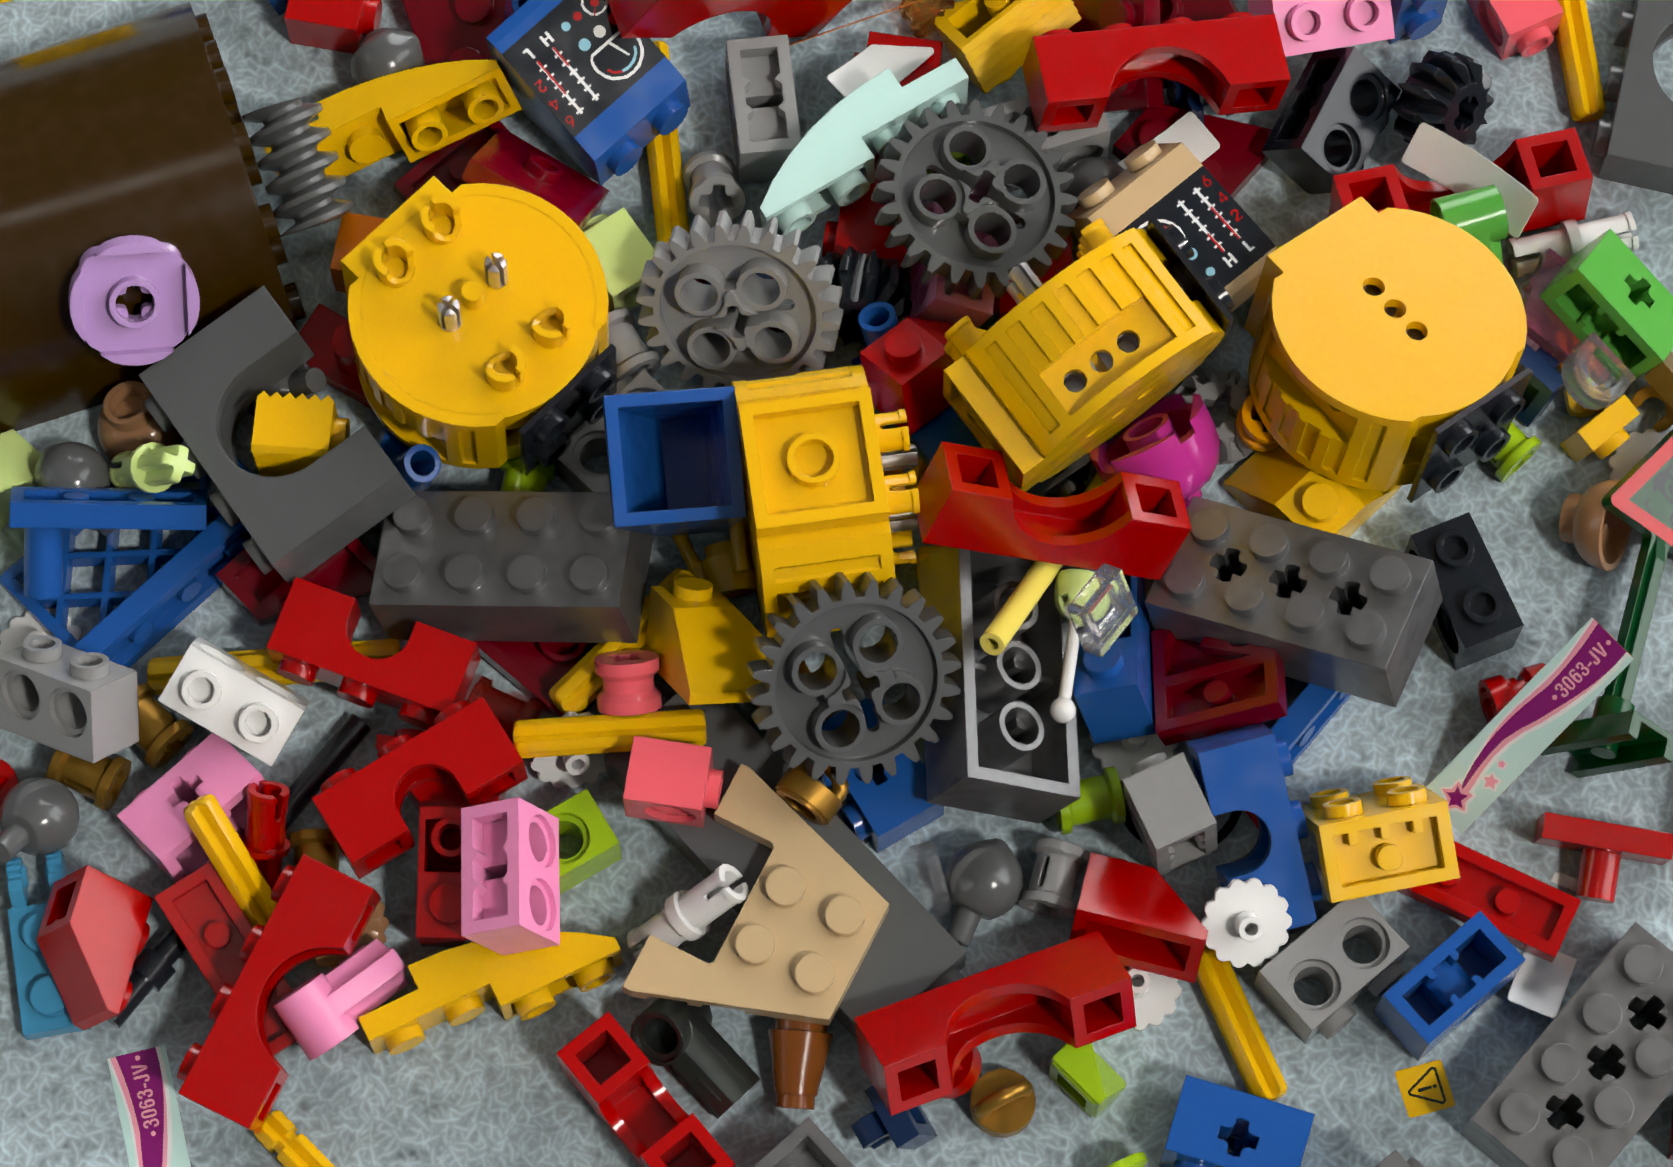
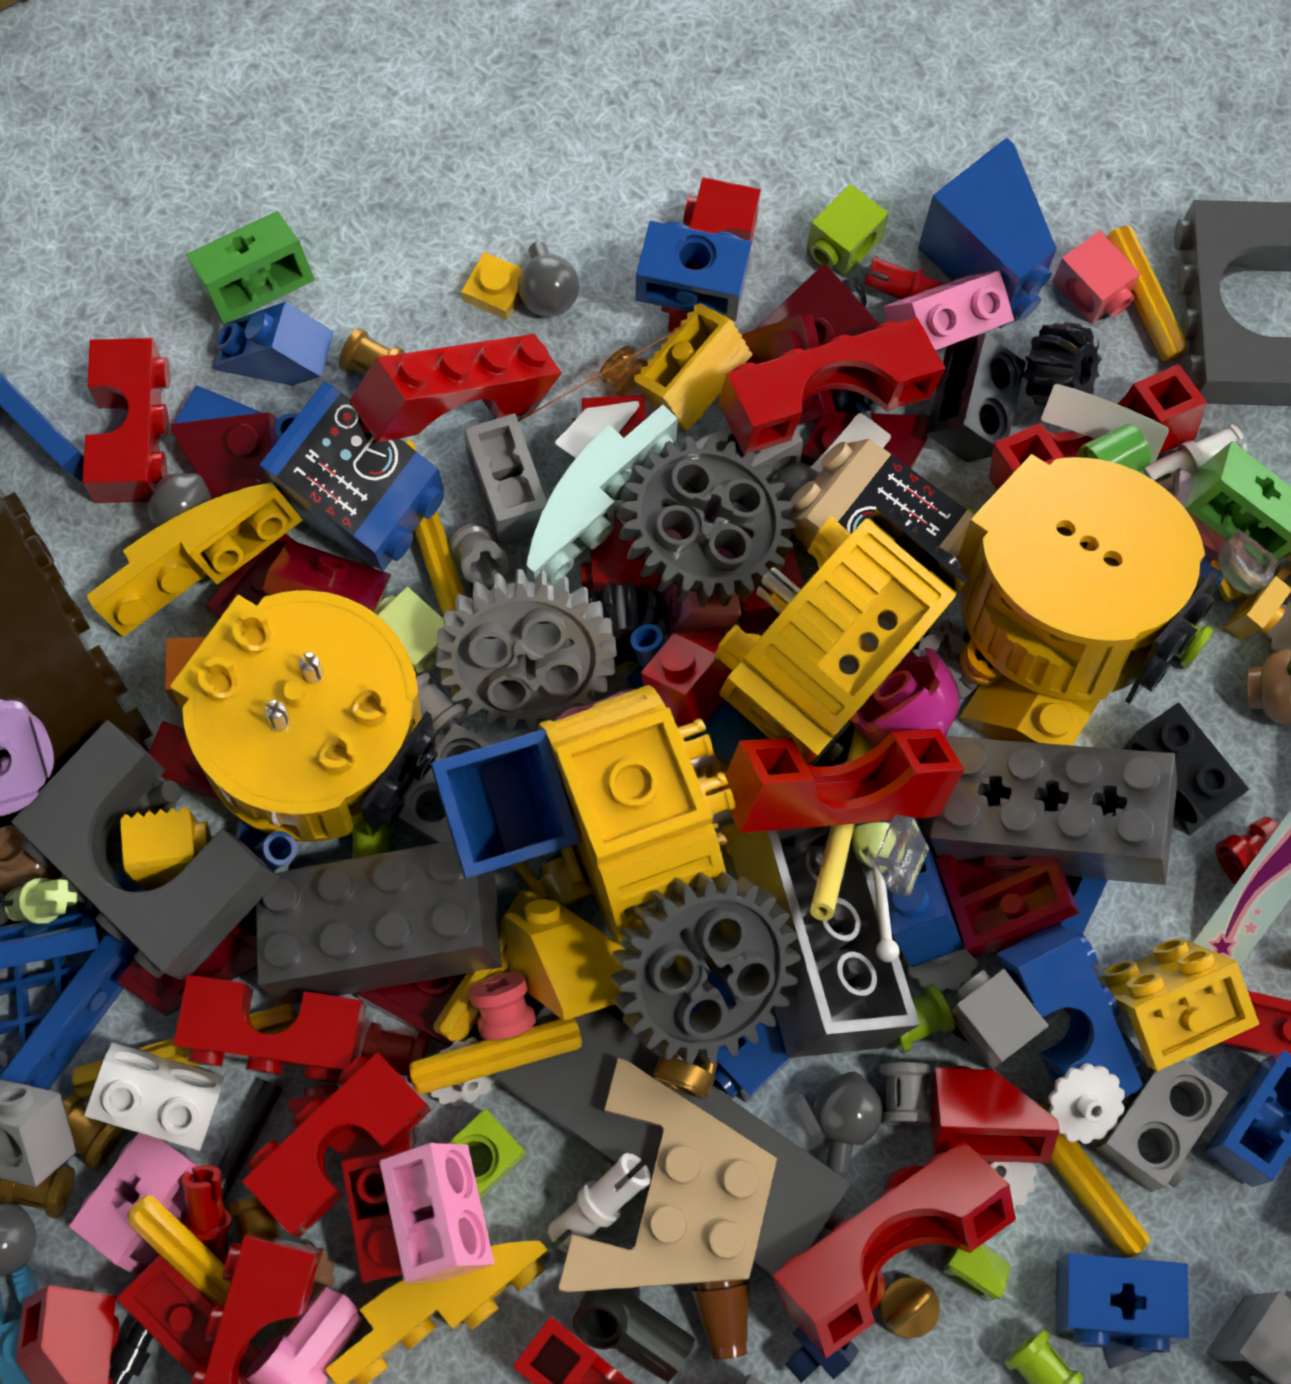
camera: 15 degrees left, 0 degrees up
(298, 164) = (118, 605): dark grey piece -> none
(671, 782) = (561, 1089): coral brick -> none
(1424, 1088) = (1261, 1209): yellow sticker -> none

